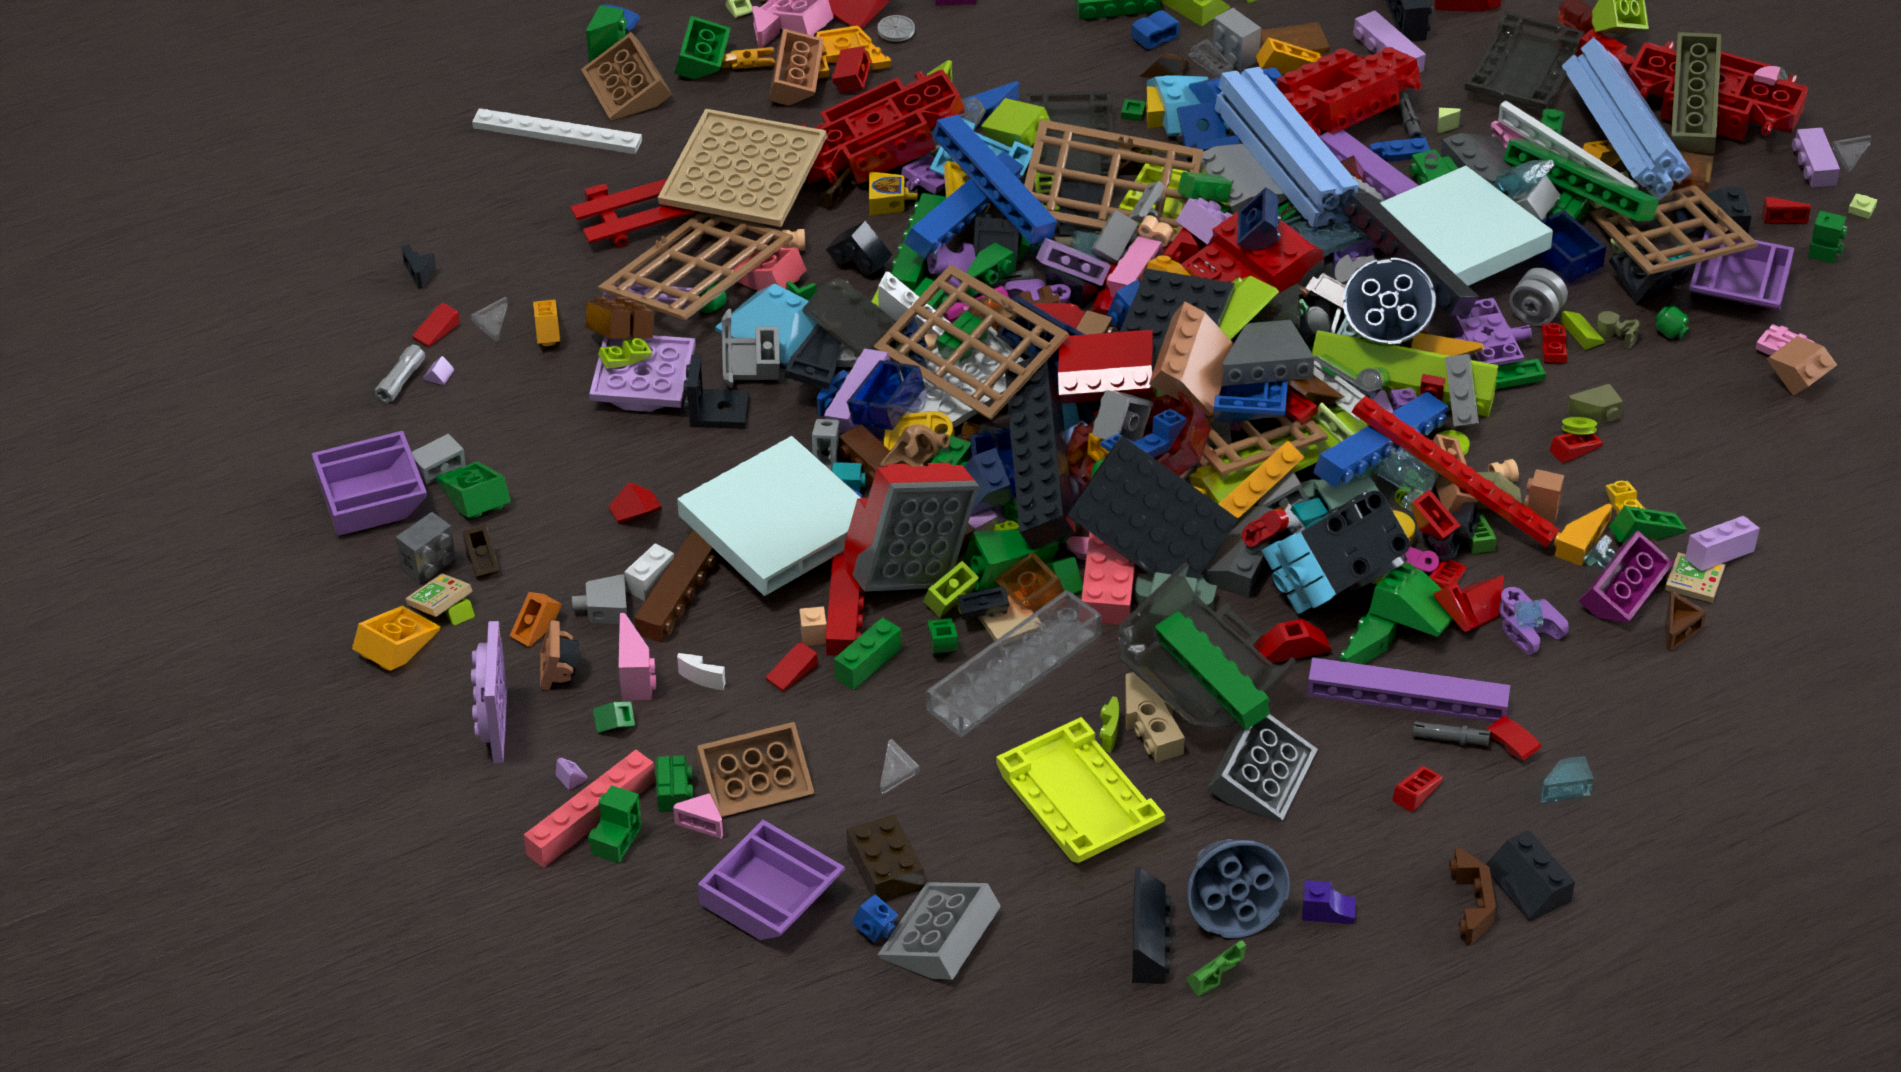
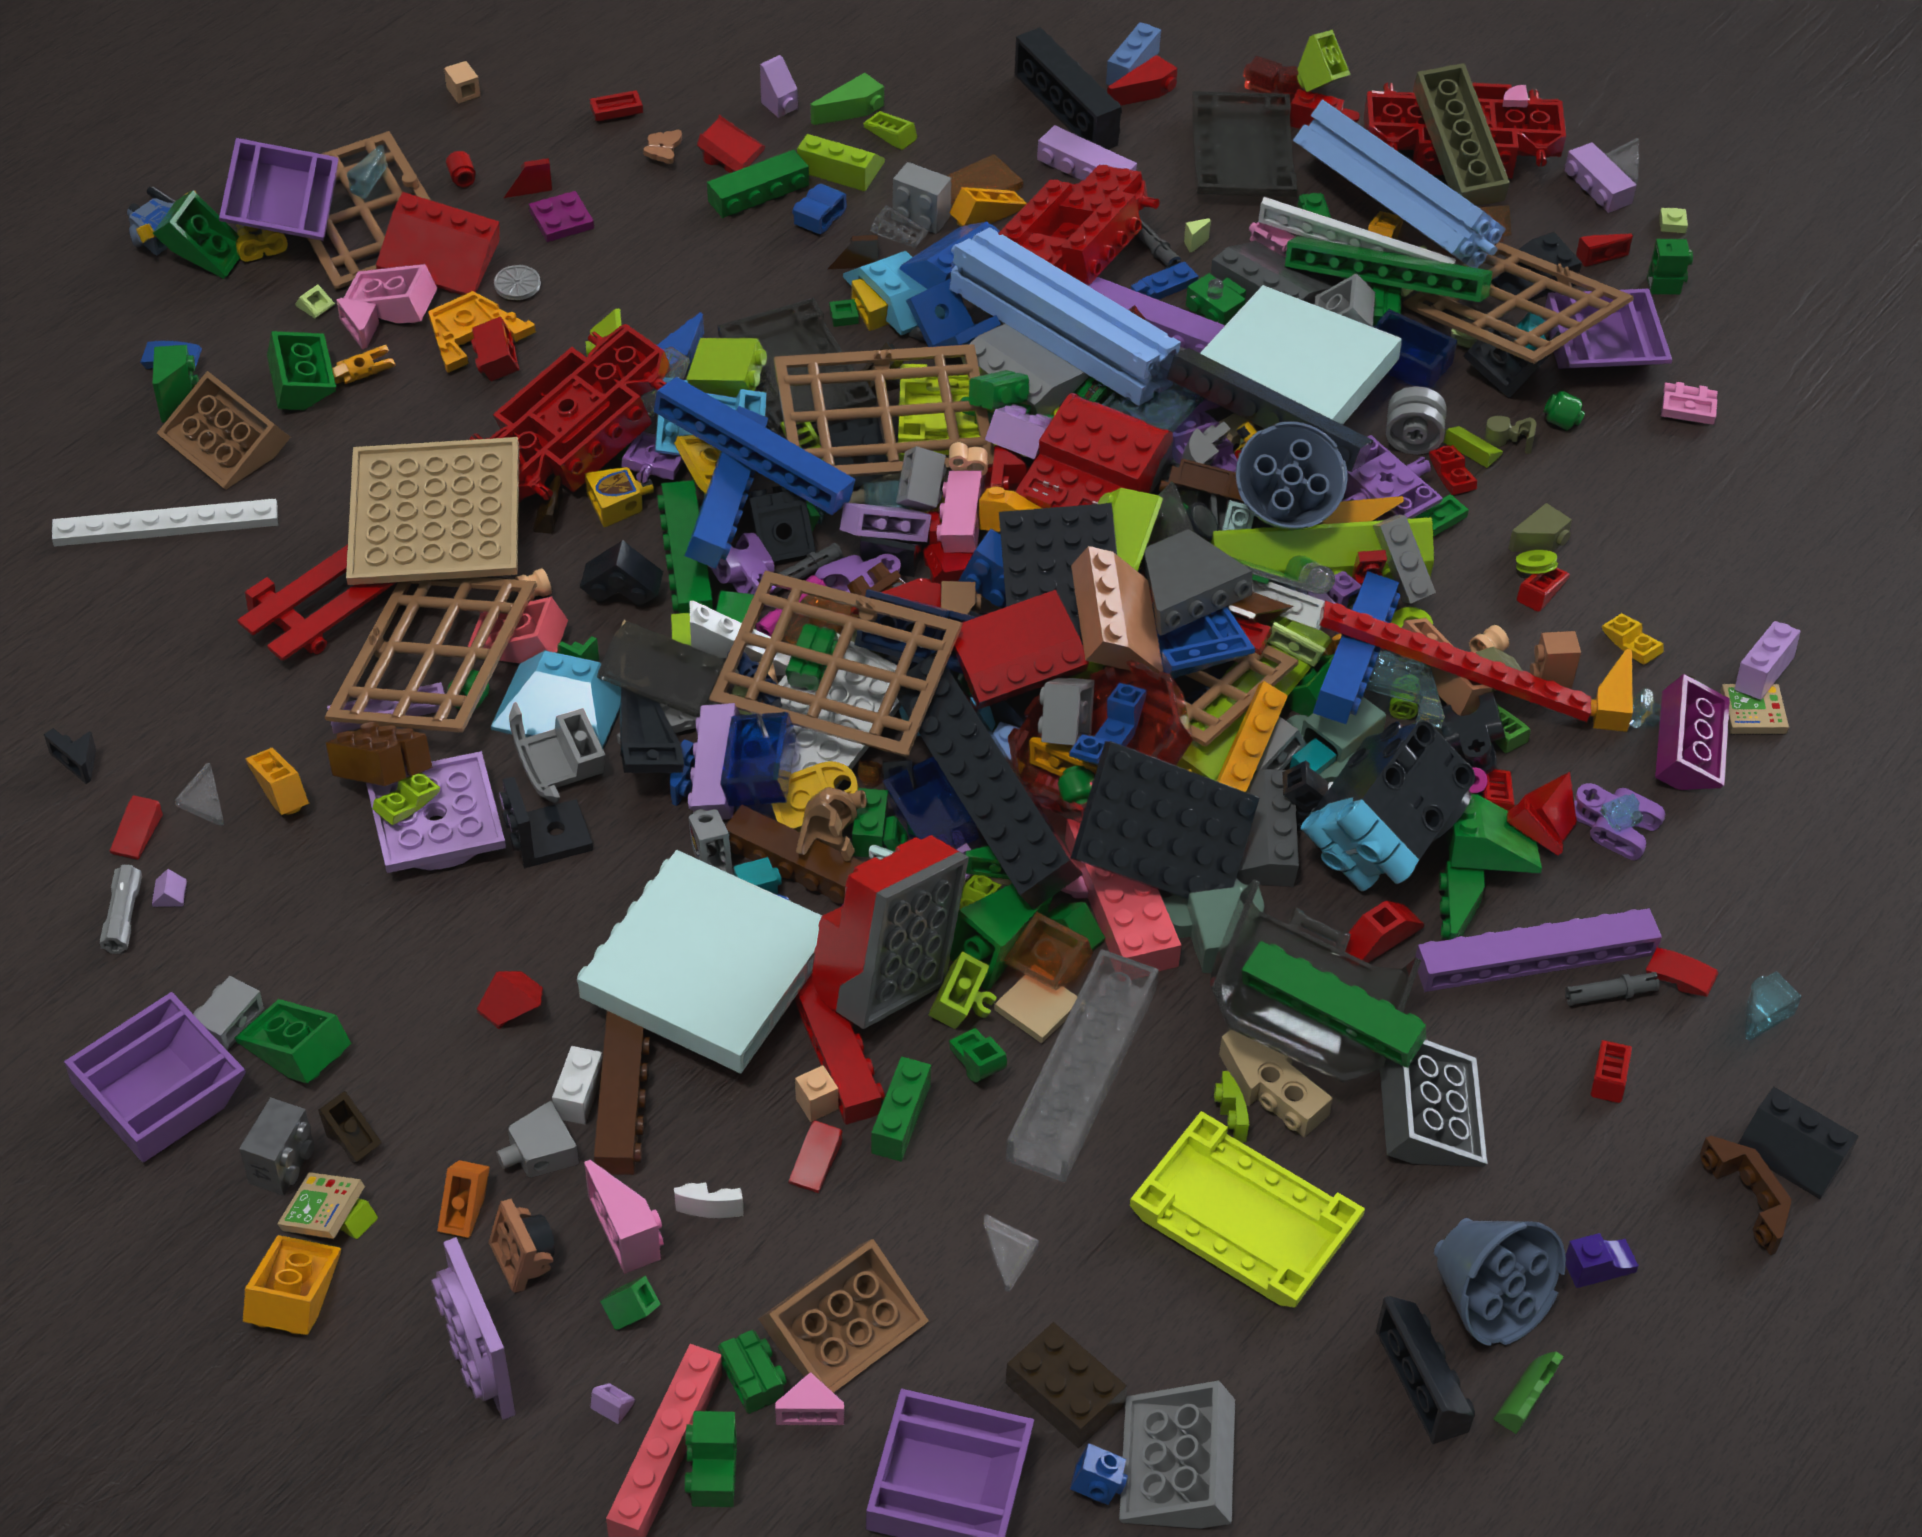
camera: 25 degrees left, 5 degrees up
(795, 67) = (426, 364): nougat slope -> none
(983, 603) = (1009, 996): black plate -> none
(991, 266) = (794, 553): green slope -> none
(992, 481) = (945, 824): dark blue slope -> none
(1144, 206) = (941, 426): light grey plate -> none
(1256, 533) = (1284, 809): red piece -> none
(1259, 221) = (1098, 418): dark blue brick -> none
(1433, 516) = (1464, 726): red slope -> none
(1522, 176) = (1332, 280): clear light blue slope -> none
(1646, 521) = (1671, 661): green slope -> none
(1682, 621) = (1774, 768): reddish brown slope -> none
(1801, 363) = (1726, 421): nougat slope -> none

